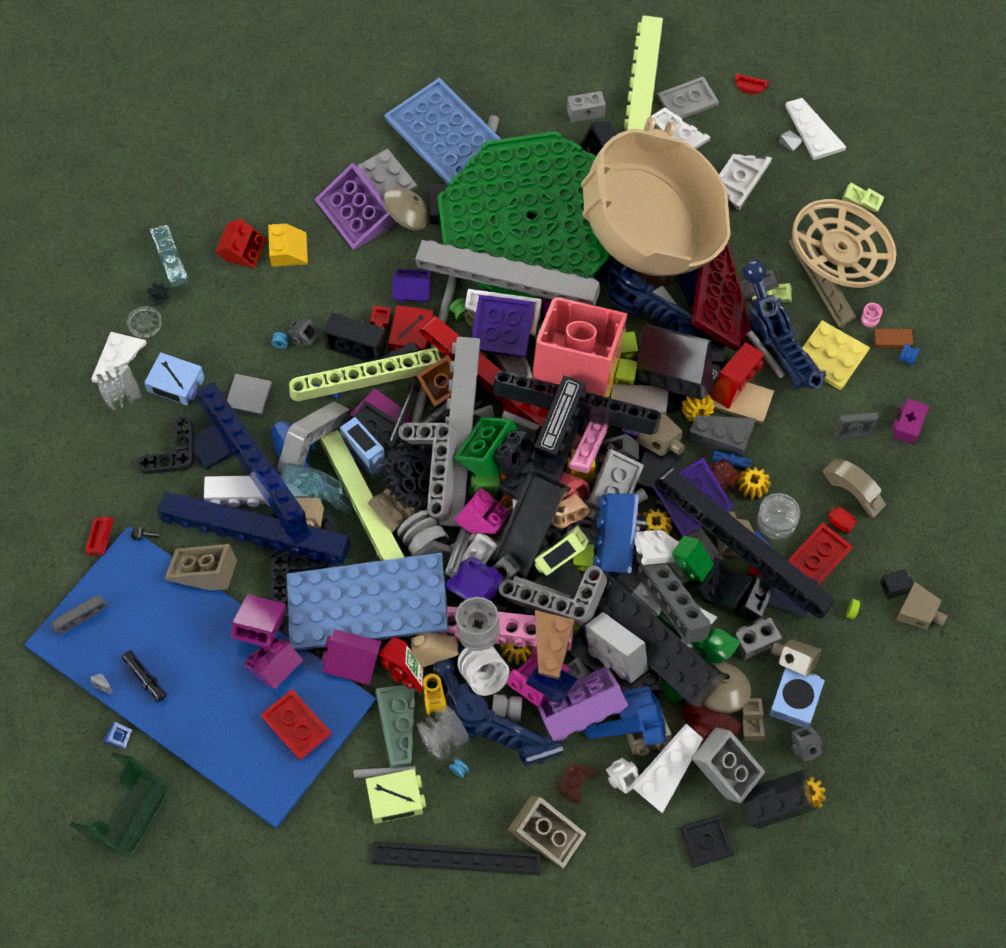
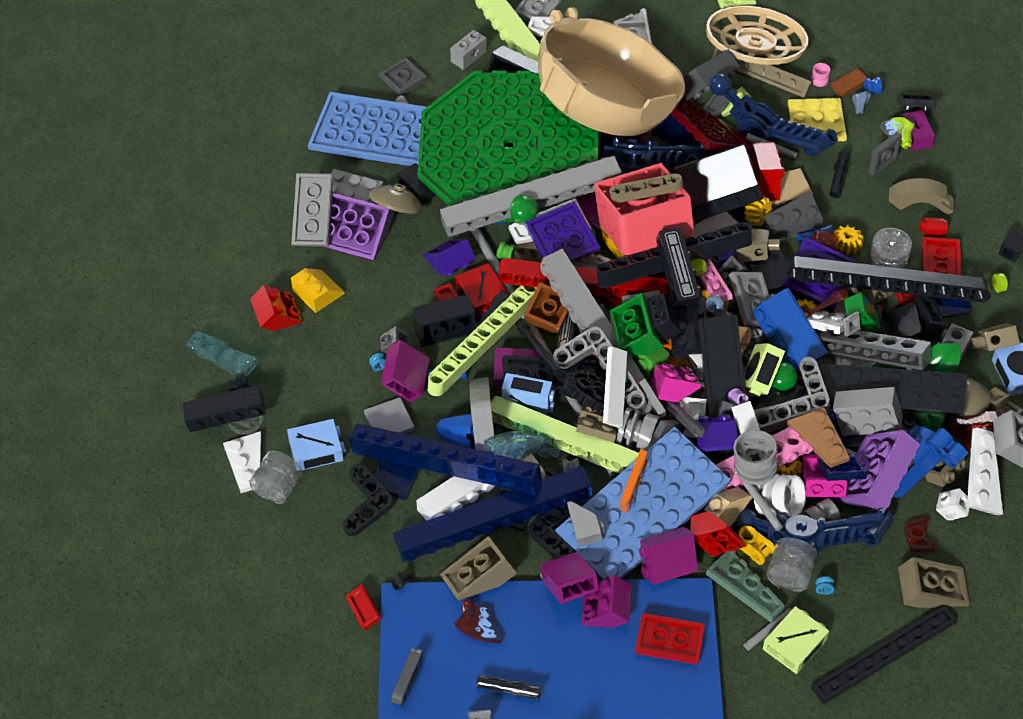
camera: 35 degrees left, 10 degrees down
(131, 304) = (224, 408): none -> black brick
(167, 608) = (478, 623): none -> clear red arm
(288, 360) = (405, 371): none -> magenta brick
(303, 586) = (585, 525): none -> light grey slope
(334, 175) = (312, 210): none -> light grey tile
(349, 529) = (569, 465): none -> dark grey wheel
(368, 576) = (634, 481): none -> orange tile
(421, 486) = (615, 387): none -> white tile
(453, 510) = (652, 399): none -> light grey tile
(456, 670) = (764, 506): none -> light grey bar
(487, 282) = (523, 209): none -> green hair
(505, 588) = (745, 417): none -> white slope
(514, 99) = (403, 76): none -> dark grey tile
(521, 559) = (737, 397): none -> lavender pin
(566, 472) = (715, 306): none -> sand blue animal
(576, 567) = (785, 377): none -> green hair
(586, 425) = (700, 266): none -> lime tile
(605, 338) = (620, 193): none -> dark tan beam
(666, 562) = (851, 324): none -> light grey slope
(684, 529) = (836, 297): none -> clear red arm
(772, 255) = (699, 78): none -> dark grey brick
(808, 414) = (840, 169): none -> black pin
(887, 360) = (861, 99): none -> sand blue animal
(891, 412) = (902, 126): none -> lime arm
(933, 393) = (912, 101): none -> black plate

